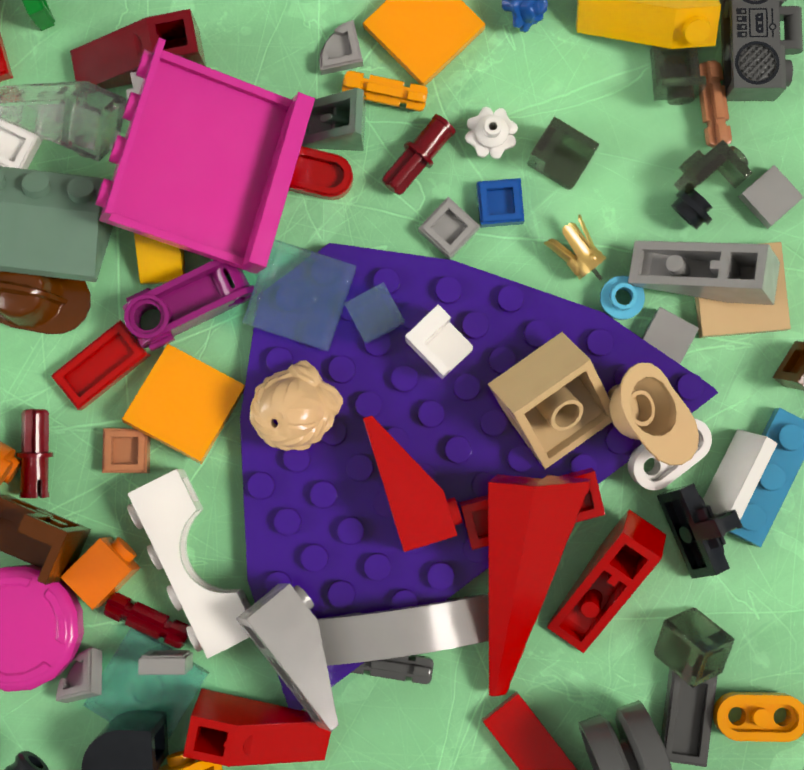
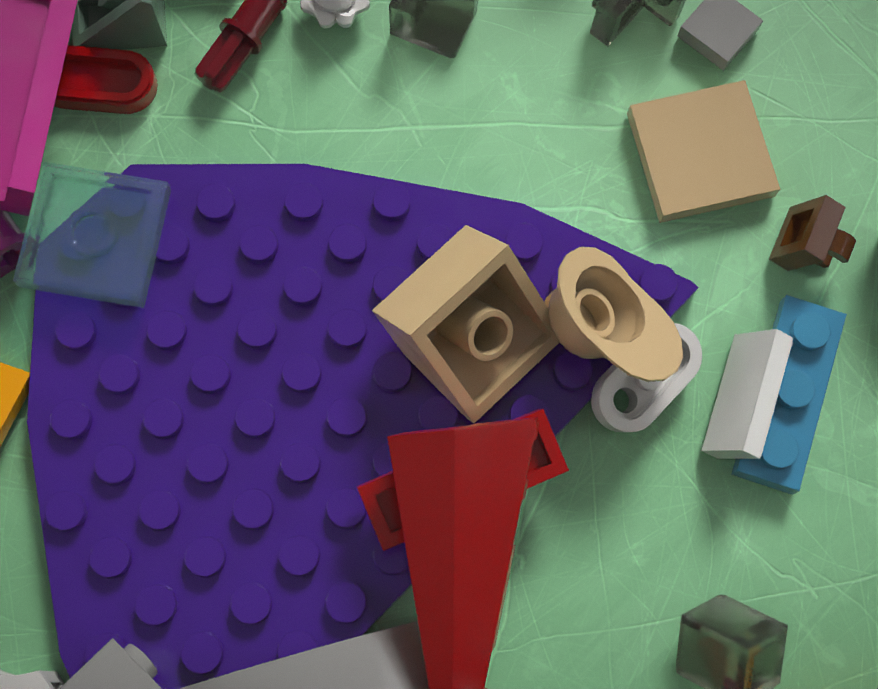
camera: 15 degrees left, 10 degrees down
(300, 405) = (105, 380): tan hair -> none
(374, 313) = (201, 243): clear light blue tile -> none
(414, 497) = (286, 484): red slope -> none
(438, 342) = (294, 266): white panel -> none
(449, 228) = (295, 126): light grey tile -> none
(500, 202) = (360, 84): blue tile -> none
(586, 256) = (490, 133): pearl gold piece -> none
(608, 580) = (590, 574): red slope -> none
(615, 309) = (540, 197): medium azure plate -> none
(670, 334) = (619, 219): light grey tile -> none
(692, 208) = (619, 53): black plate -> none
(698, 530) = (706, 477): black hinge -> none
(707, 270) = (655, 122): light grey slope -> none

